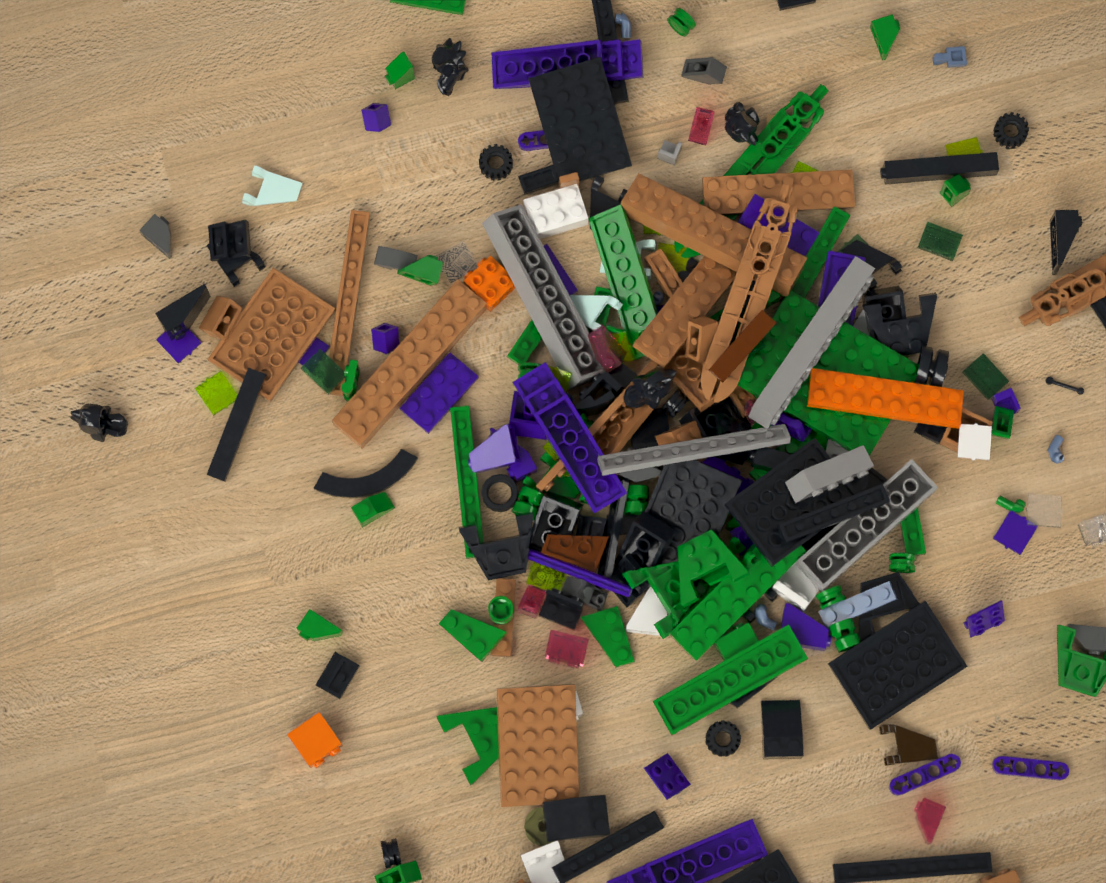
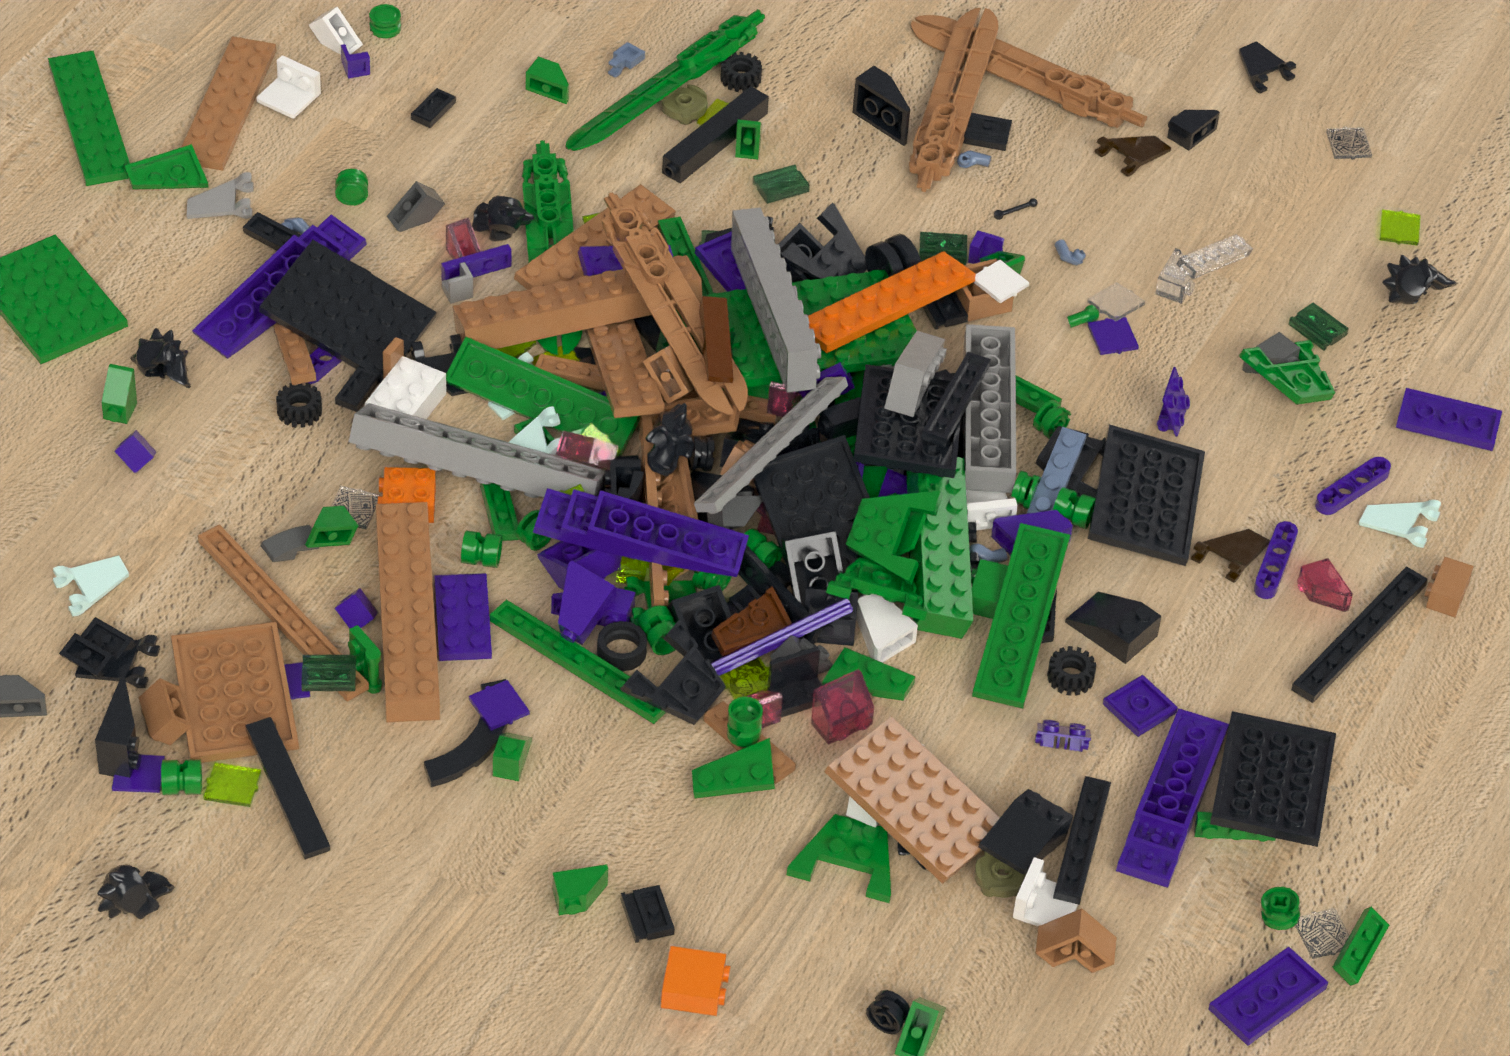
camera: 50 degrees left, 30 degrees down
(190, 368) = (181, 777): none -> green wheel
(395, 472) = (499, 705): none -> dark purple piece
(495, 362) = (481, 549): none -> green wheel
(521, 129) = (294, 355): none -> medium nougat plate
(696, 146) = (479, 263): none -> dark purple tile
(735, 796) = (1140, 705): none -> dark purple plate
(957, 118) = (677, 106): none -> olive plate
(1001, 98) = (690, 64): none -> green piece
(1029, 814) = (1400, 519): none -> light aqua flag
(1080, 324) = (972, 158): none -> sand blue arm

